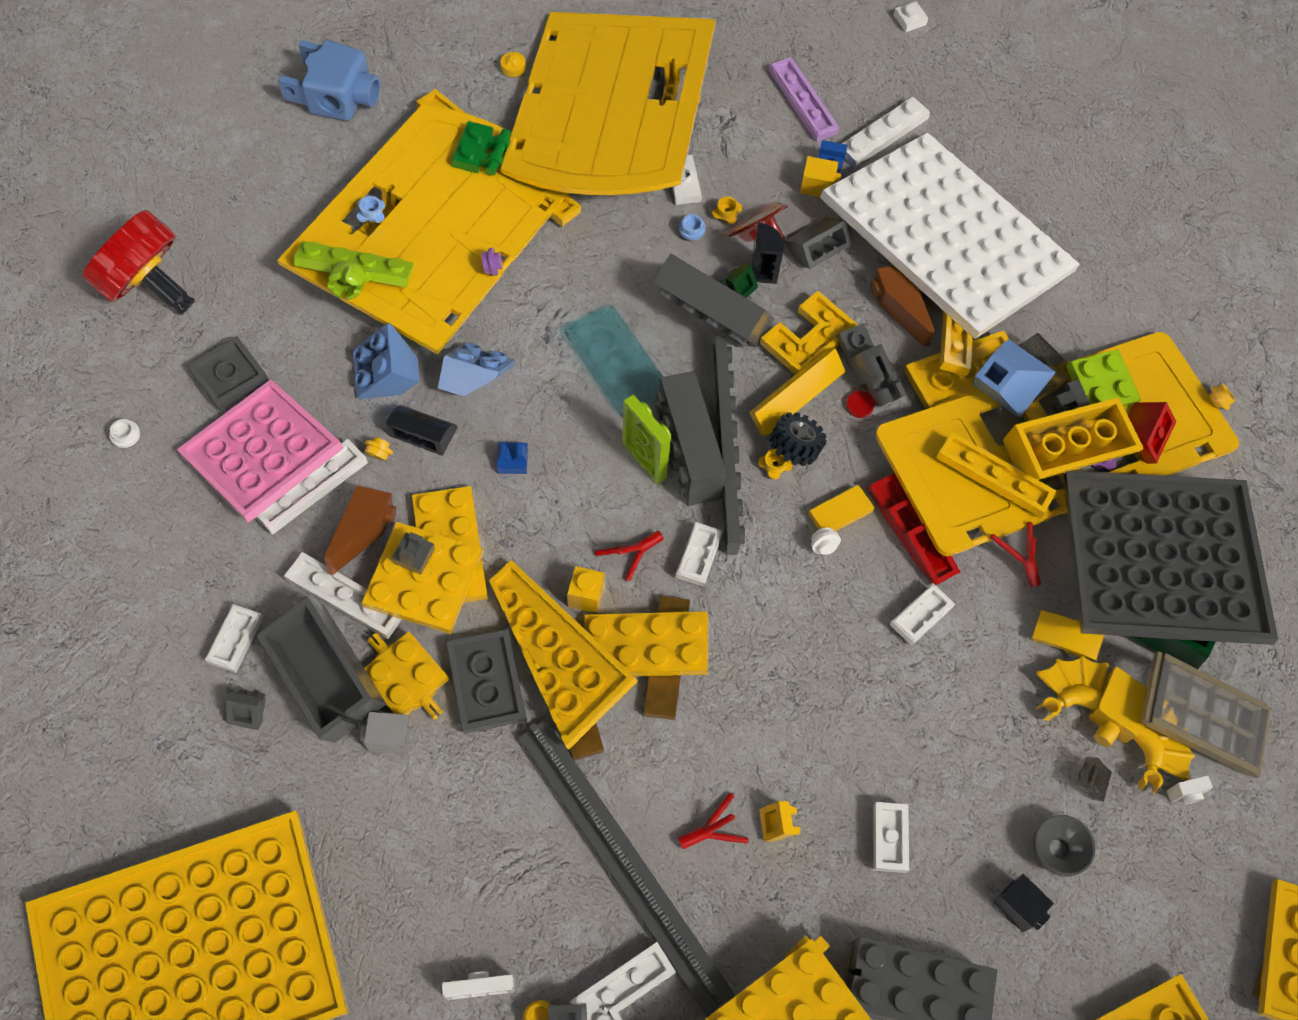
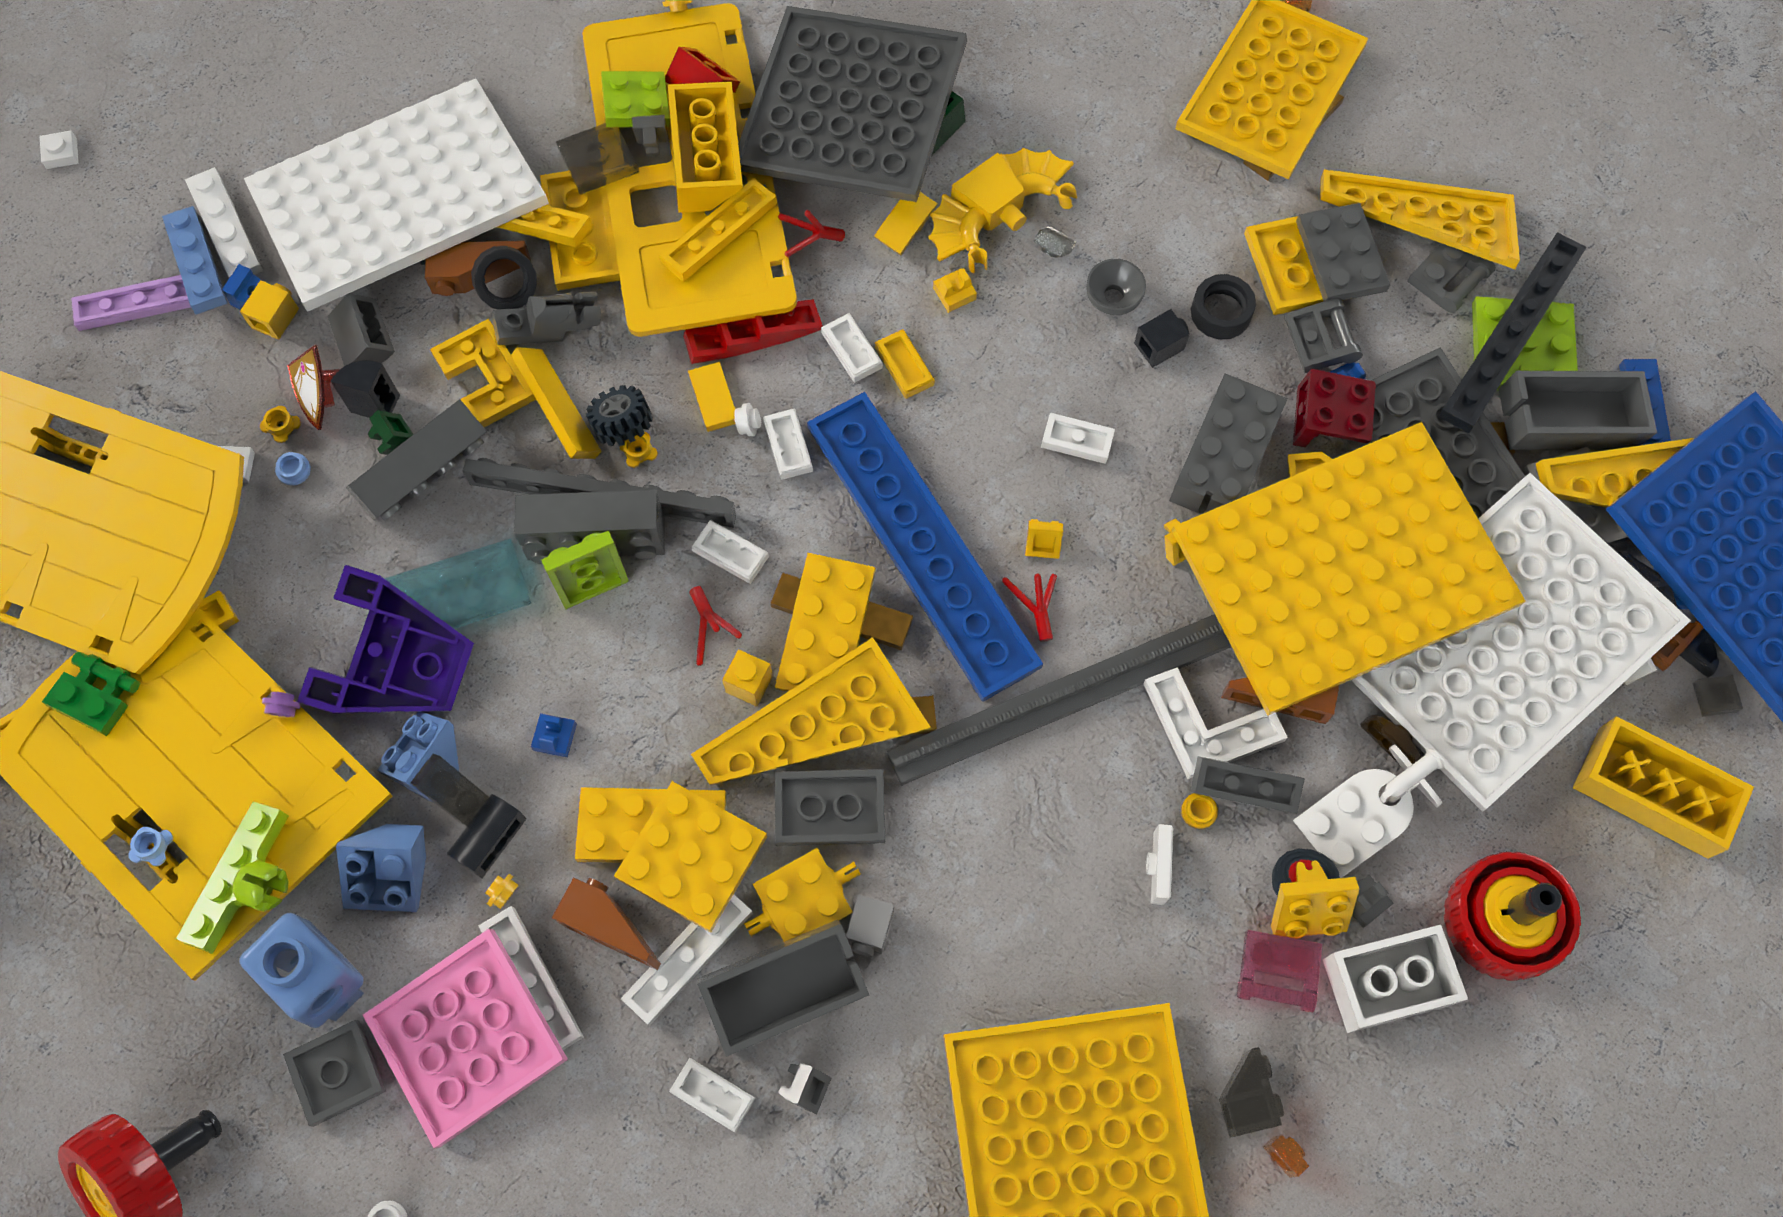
camera: 75 degrees left, 5 degrees up
(288, 324) = (322, 982): none -> medium blue piece
(413, 553) = (665, 857): dark grey tile -> none
(448, 391) = (449, 789): none -> clear smoke plate
(552, 336) = (401, 659): none -> dark purple wedge
(742, 716) = (925, 547): none -> blue plate
(812, 579) = (788, 444): none -> white plate
(845, 119) = (194, 260): none -> medium blue plate
(860, 404) = (586, 345): red piece -> none
(875, 320) = (503, 252): none -> black tyre
(922, 664) = (904, 363): none -> yellow tile
(1012, 695) = (955, 290): none -> yellow tile
(1013, 377) = (609, 178): medium blue slope -> none
(1103, 951) = (1226, 285): none -> black tyre
(1190, 790) = (1082, 166): white plate -> none
(1206, 714) = (1013, 126): clear piece -> none

